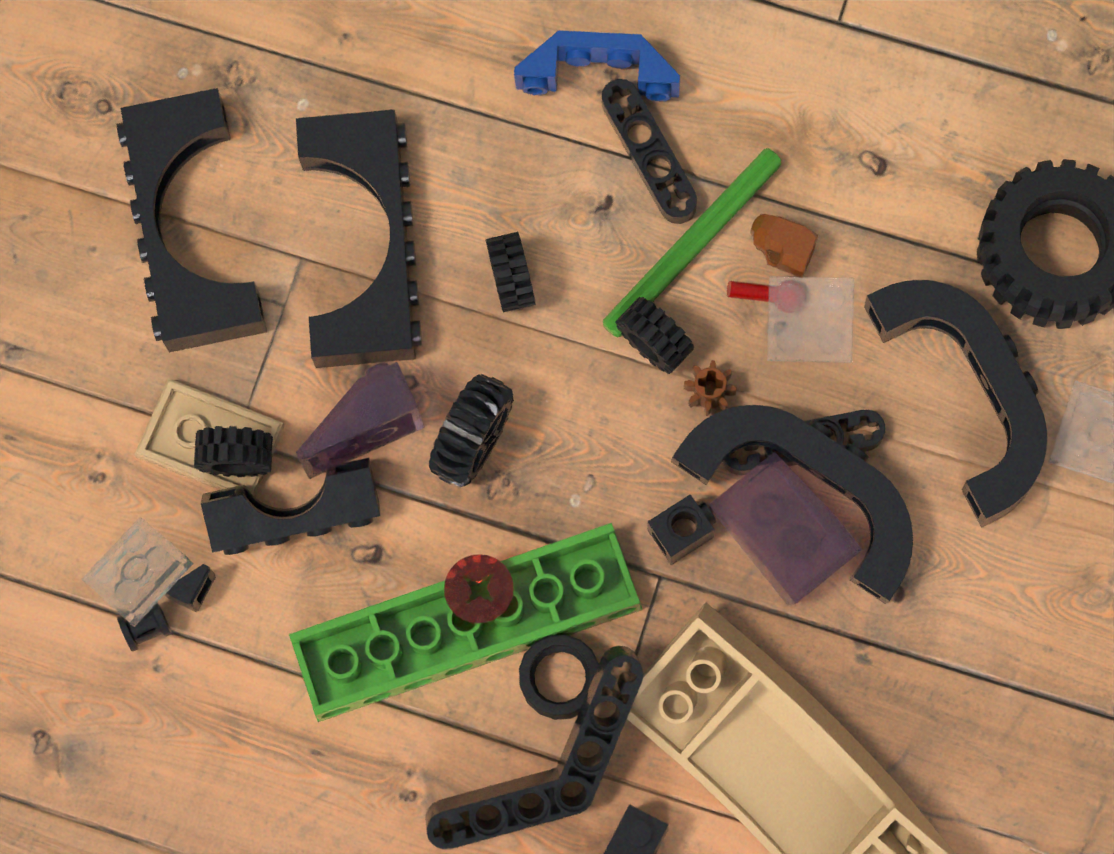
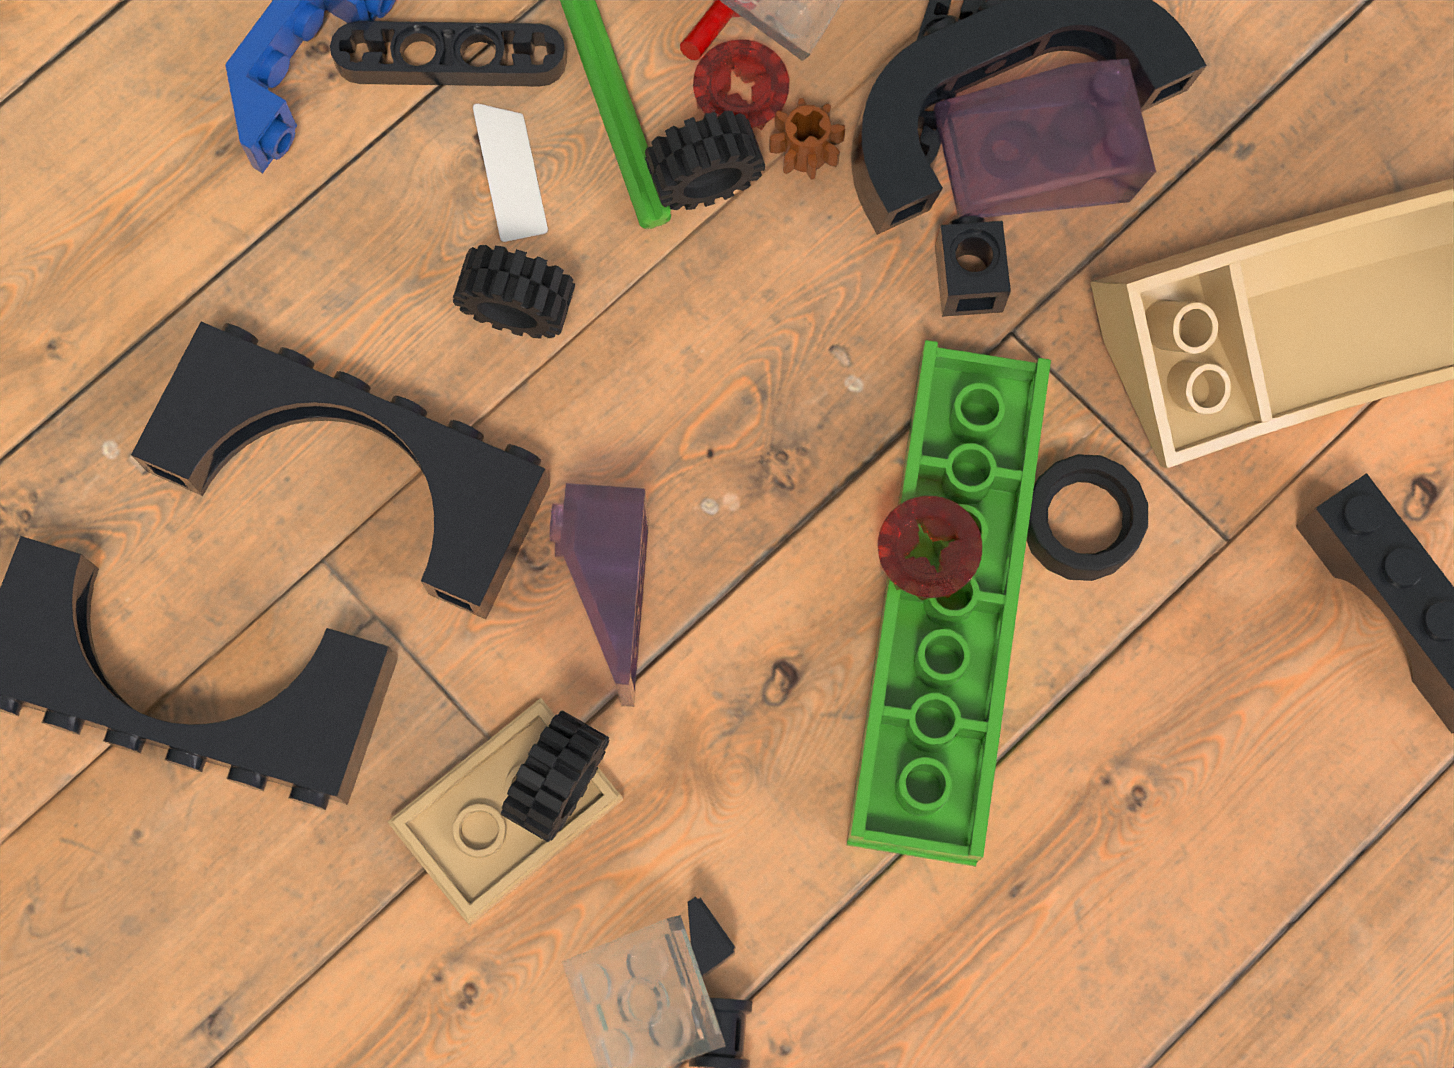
camera: 70 degrees left, 0 degrees up
(239, 519) = (694, 667): black arch -> none
(471, 430) = (703, 449): black gear -> none
(549, 782) = (1212, 741): black beam -> none
(596, 229) = (510, 173): none -> white sticker
(722, 313) = (751, 63): none -> clear red gear

